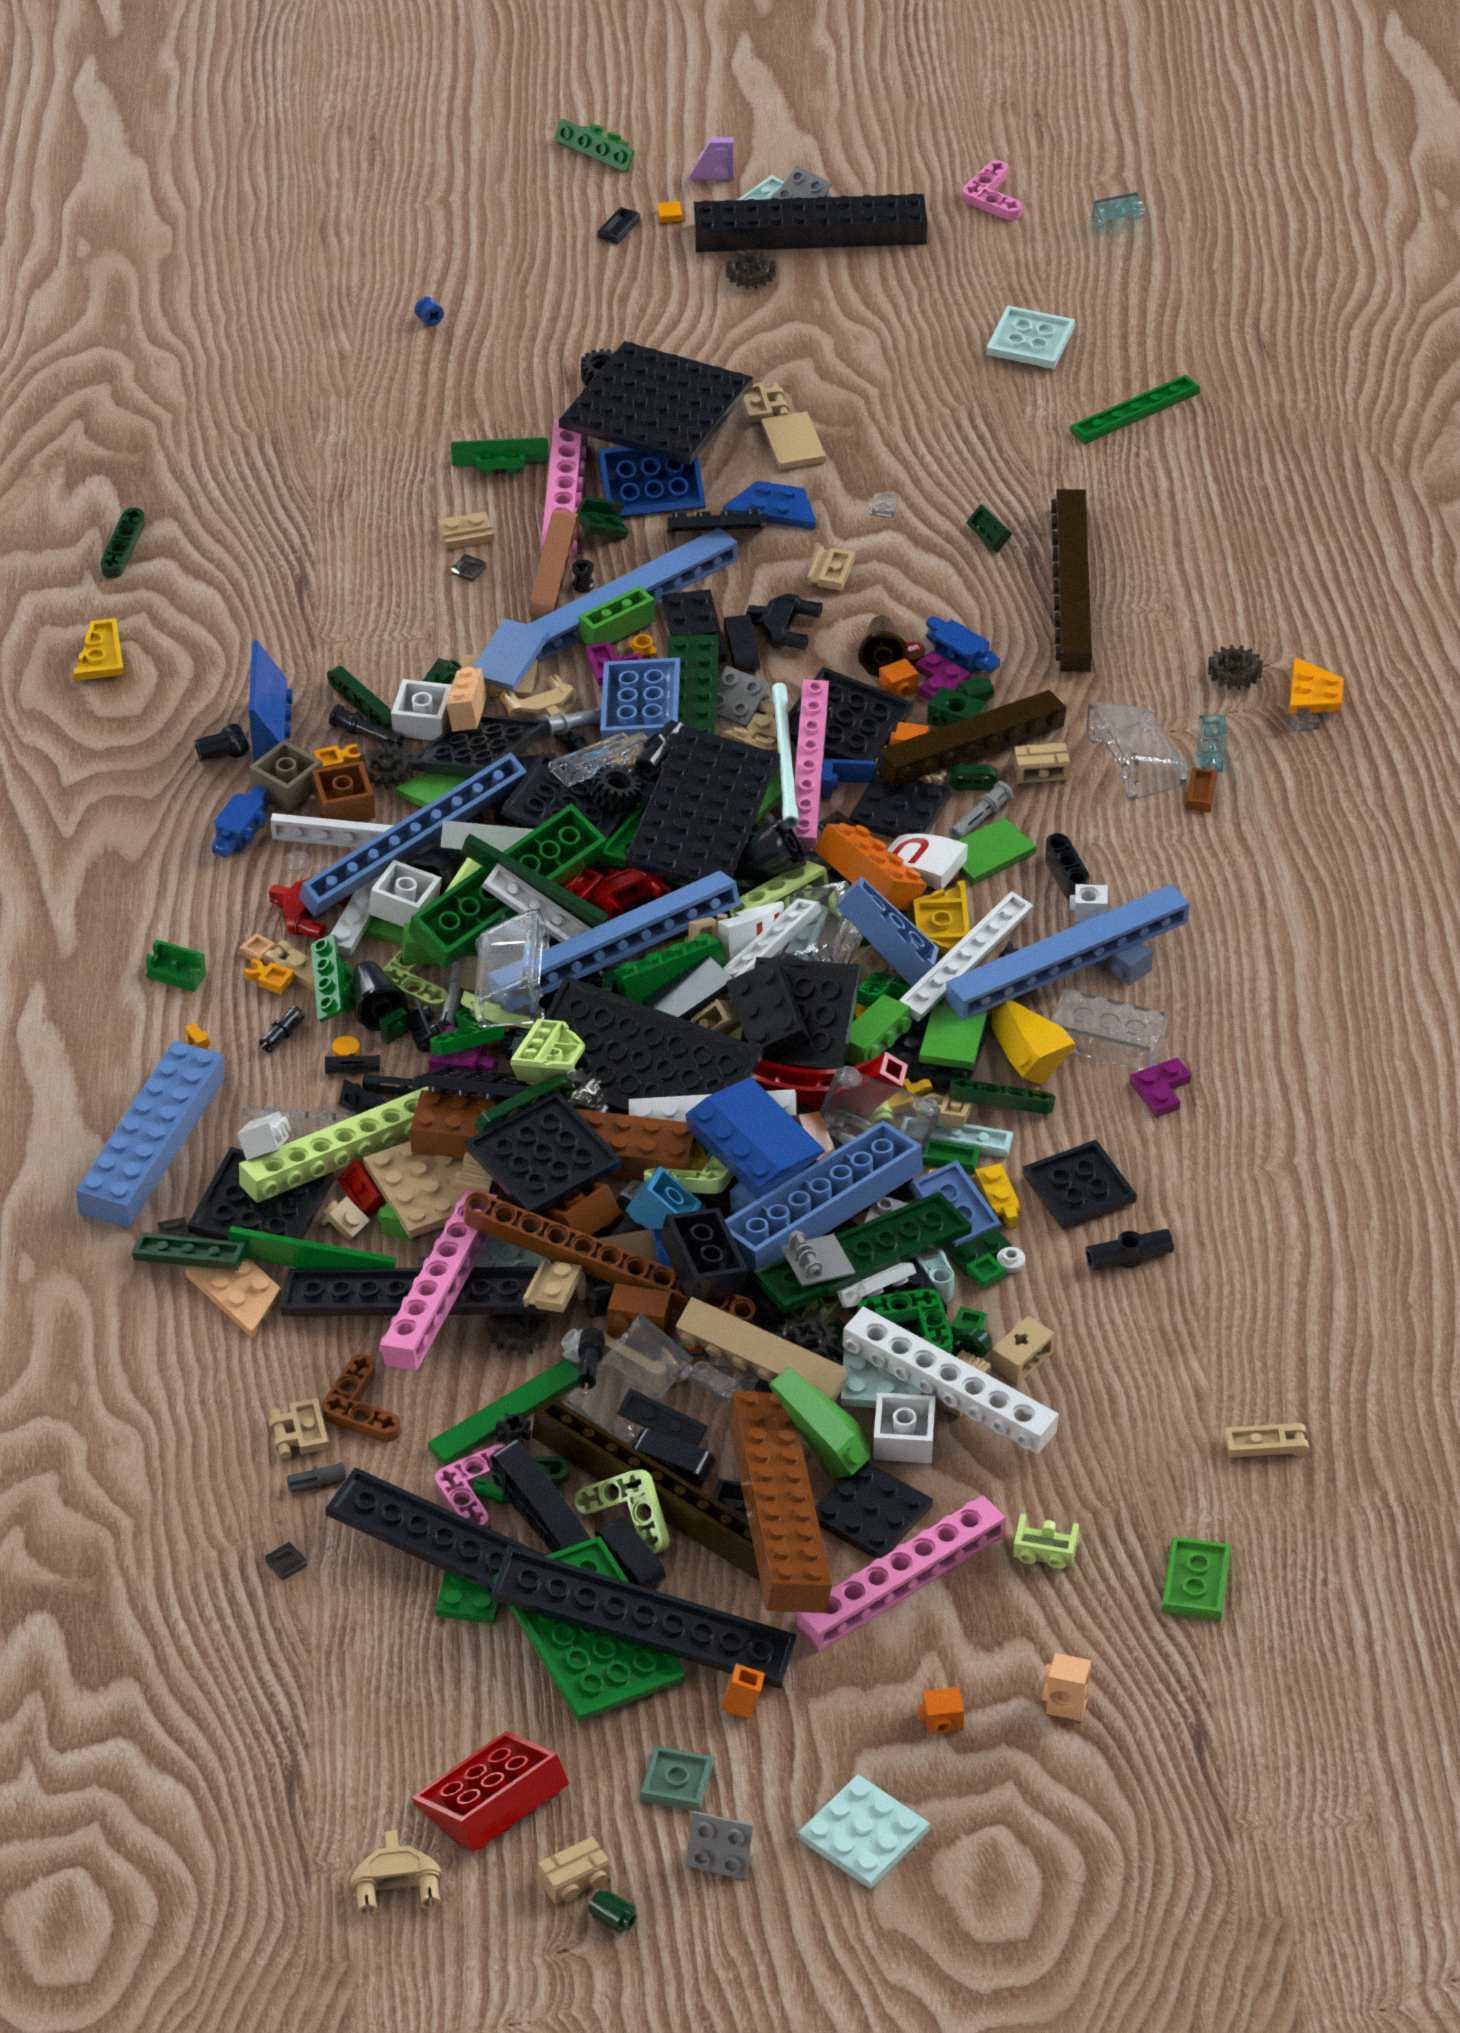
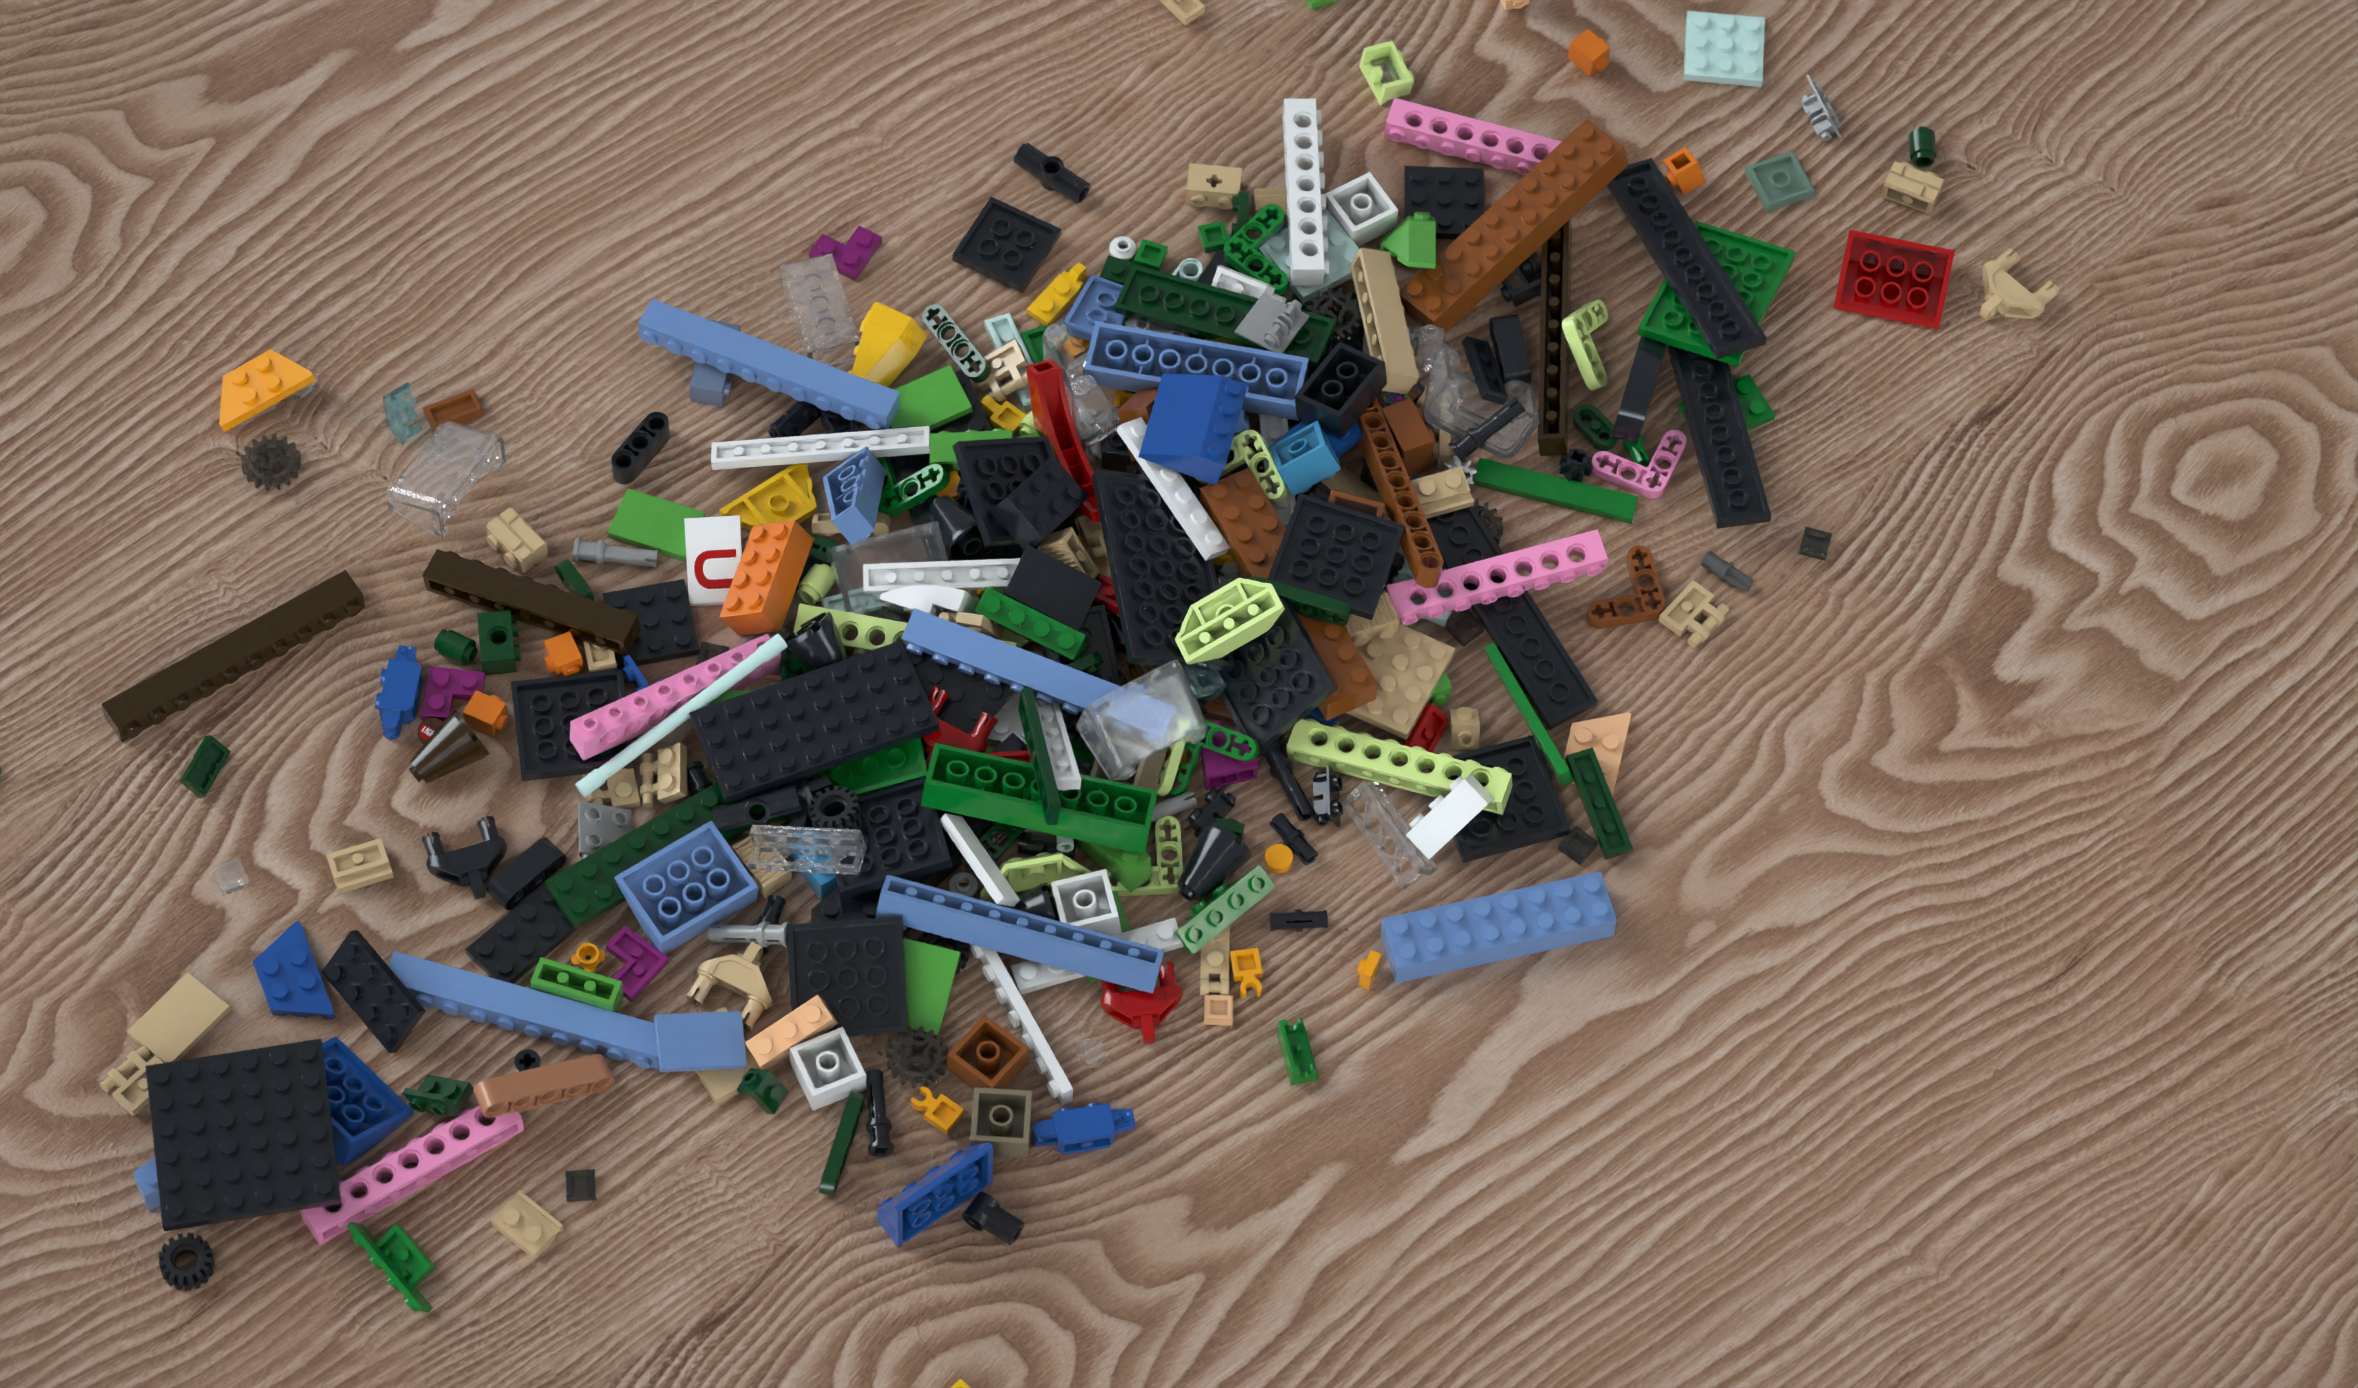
camera: 130 degrees left, 15 degrees up
(631, 1553) = (1620, 321): black beam -> none
(1088, 899) = (673, 397): white brick -> none

